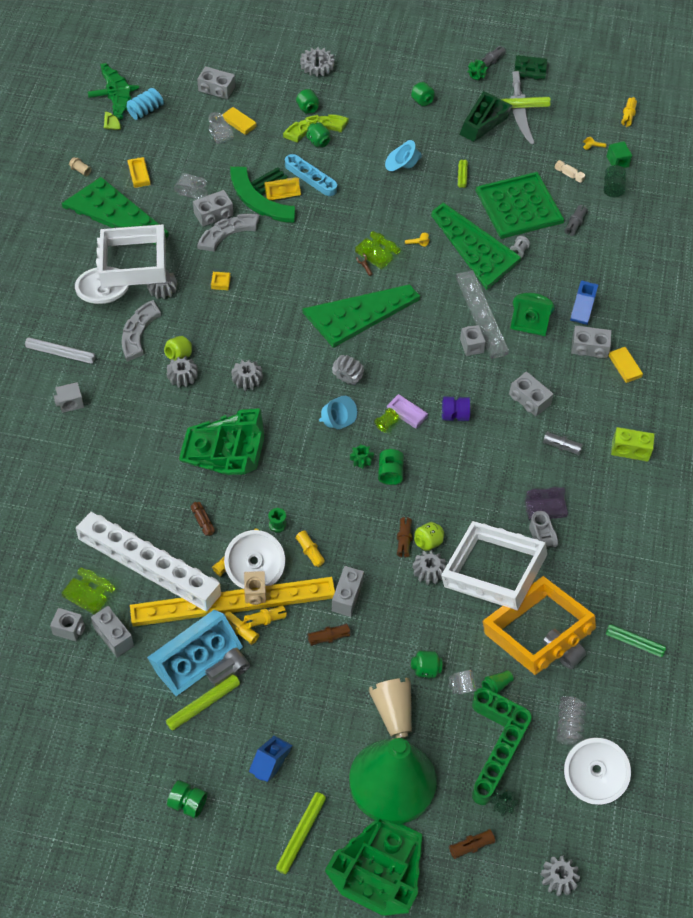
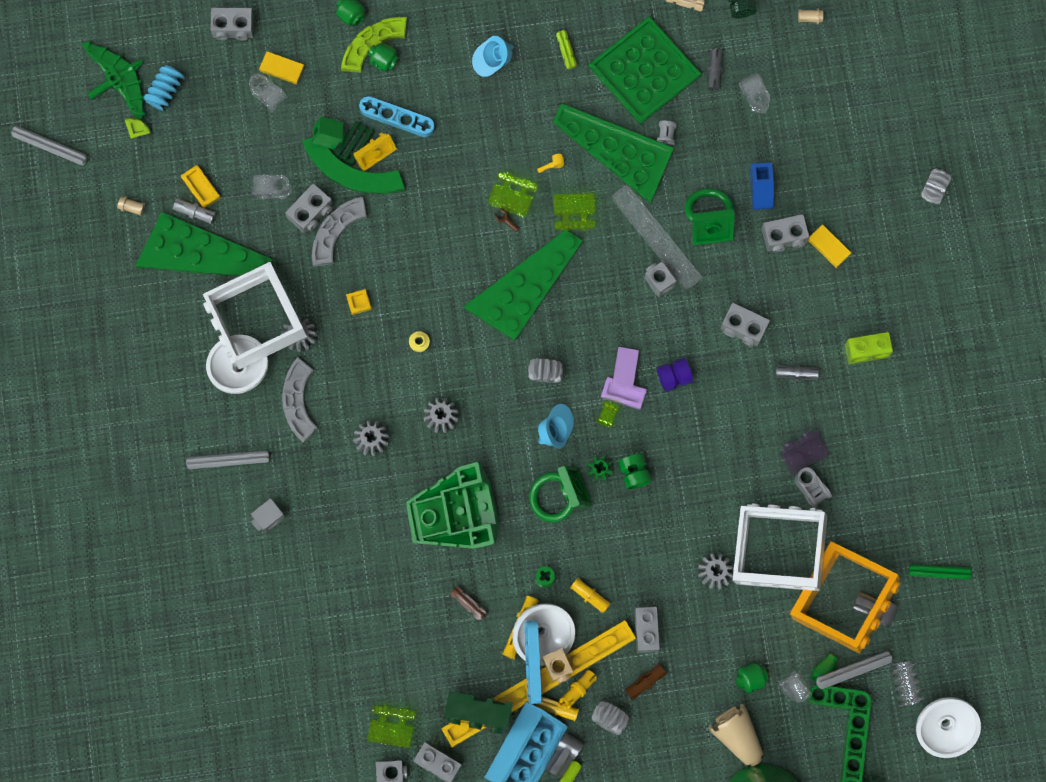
camera: 20 degrees left, 20 degrees up
(42, 114) = (49, 145): none -> light grey axle
(118, 545) = (405, 675): white brick -> none
(125, 183) = (194, 210): none -> light grey pin
(168, 598) = (478, 712): none -> dark green wedge
(178, 347) = (354, 411): lime head -> none
(233, 574) = (532, 661): none -> medium azure beam
(252, 164) = (328, 133): none -> green brick
(255, 325) = (419, 347): none -> light yellow plate
(283, 648) = (610, 718): none -> light grey gear
(331, 458) = (571, 487): none -> green tile
(404, 537) = (677, 545): reddish brown pin -> none
(416, 392) = (625, 368): none -> lavender tile
(424, 270) = (571, 205): none -> clear neon green plate
(429, 536) = (702, 536): lime head -> none
(524, 689) = (854, 670): none -> light grey axle
(603, 243) = (754, 90): none -> clear piece
(668, 209) = (810, 16): none -> tan pin

